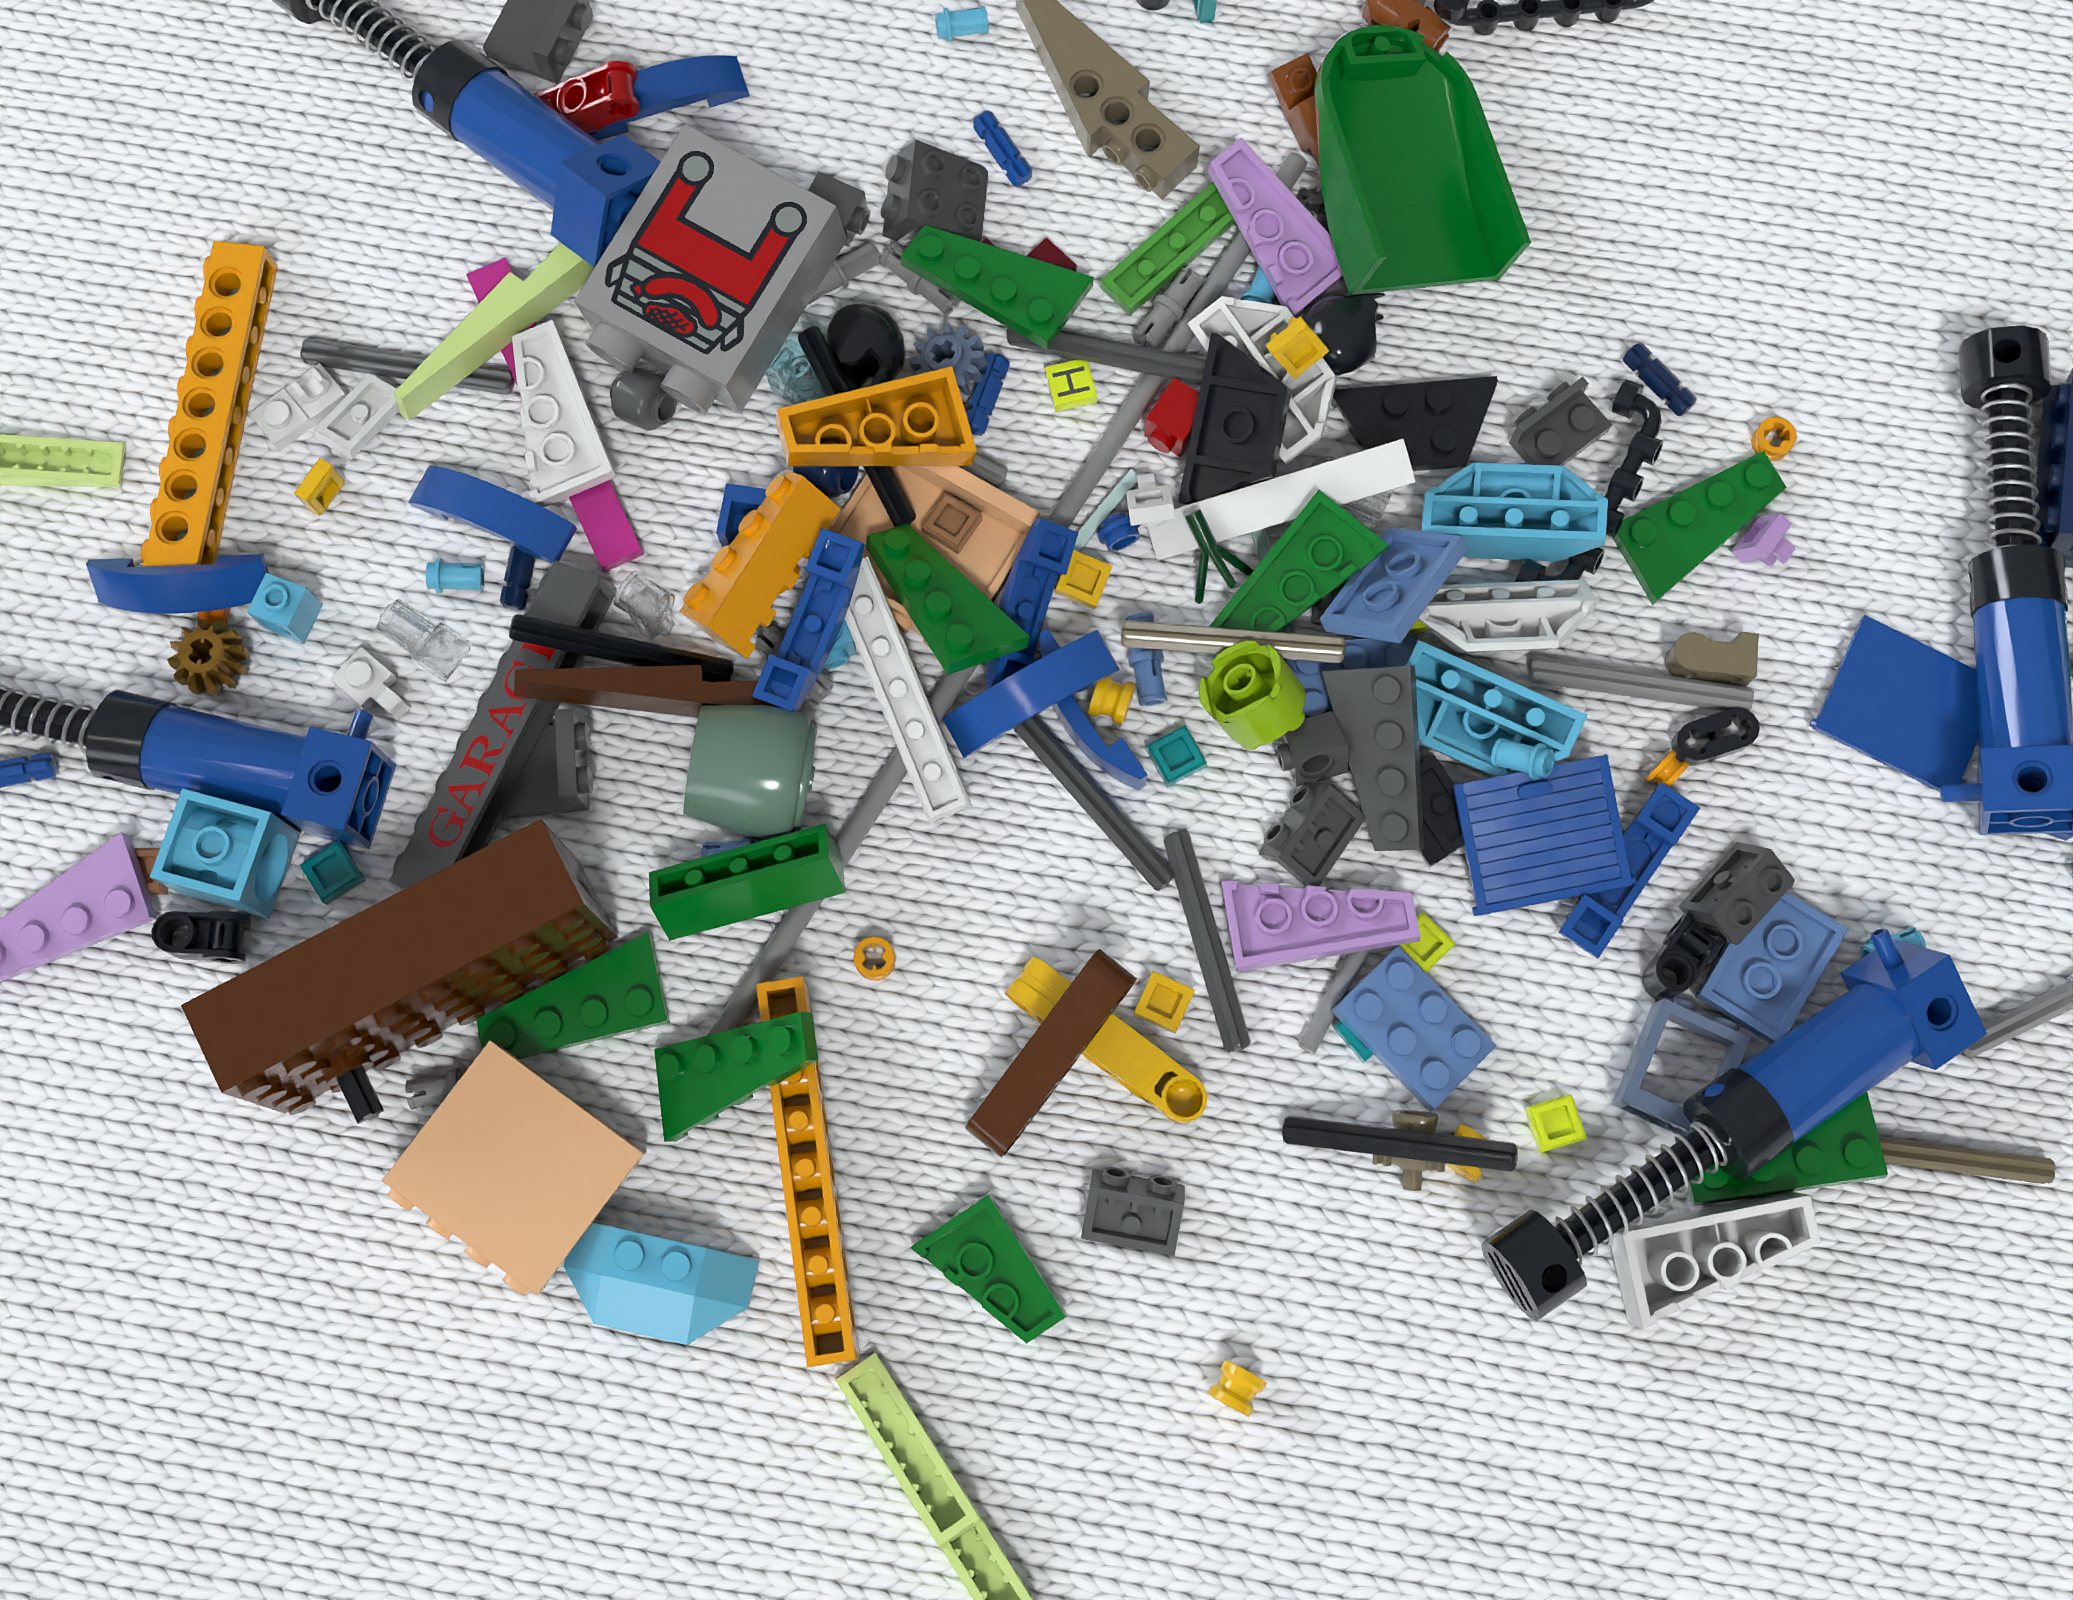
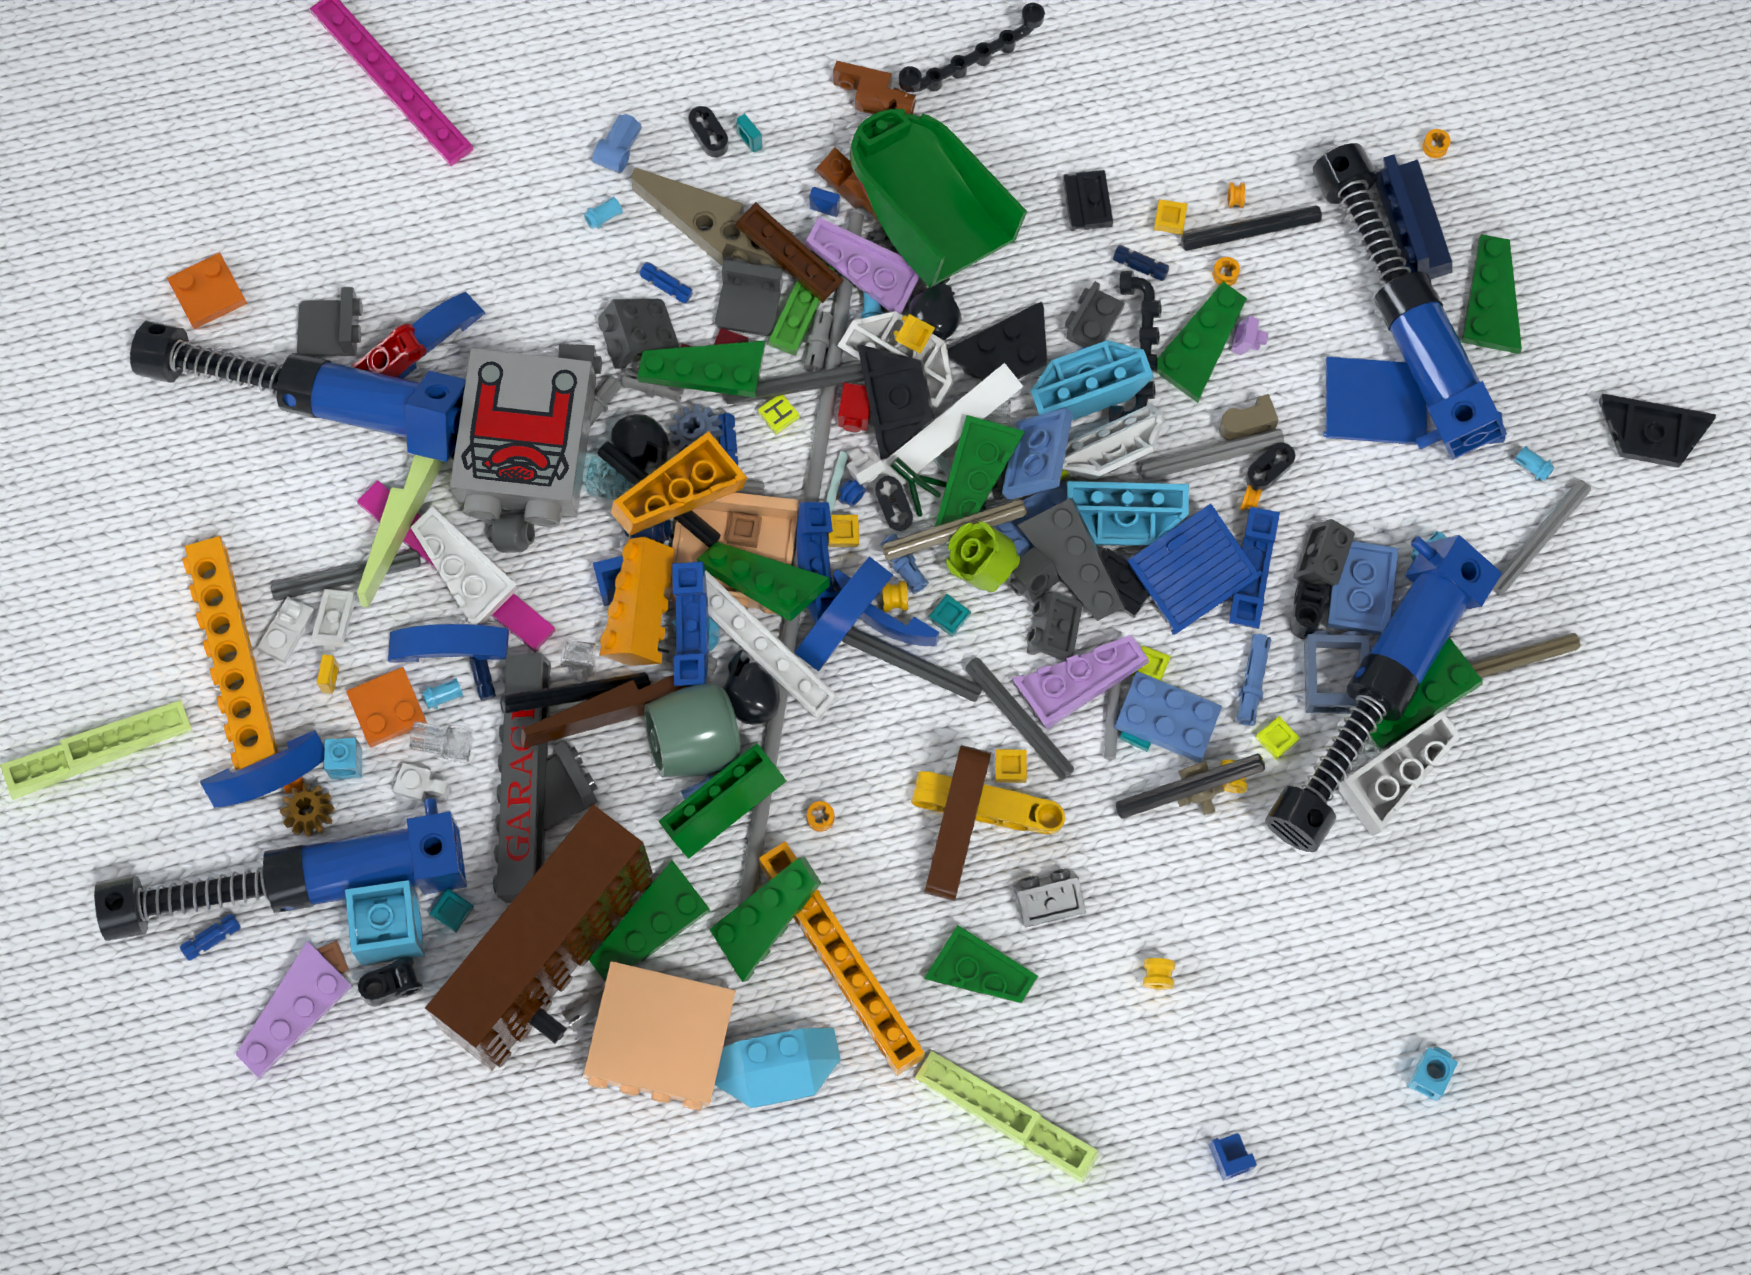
camera: 25 degrees left, 5 degrees down
(376, 562) = (386, 707): none -> orange plate
(852, 749) = (751, 691): none -> black helmet
(1102, 211) = (749, 297): none -> dark grey bracket
(1157, 570) = (901, 500): none -> black beam
(1180, 170) = (789, 252): none -> reddish brown tile
(1262, 123) = (824, 201): none -> blue tile
(1524, 758) = (1164, 525): medium azure pin -> none
(1550, 1038) = (1252, 691): none -> medium blue pin
(1624, 264) = (1088, 200): none -> black plate
(1729, 331) = (1170, 216): none -> yellow plate
(1835, 338) = (1236, 195): none -> light orange bush
(1837, 392) = (1251, 227): none -> black axle

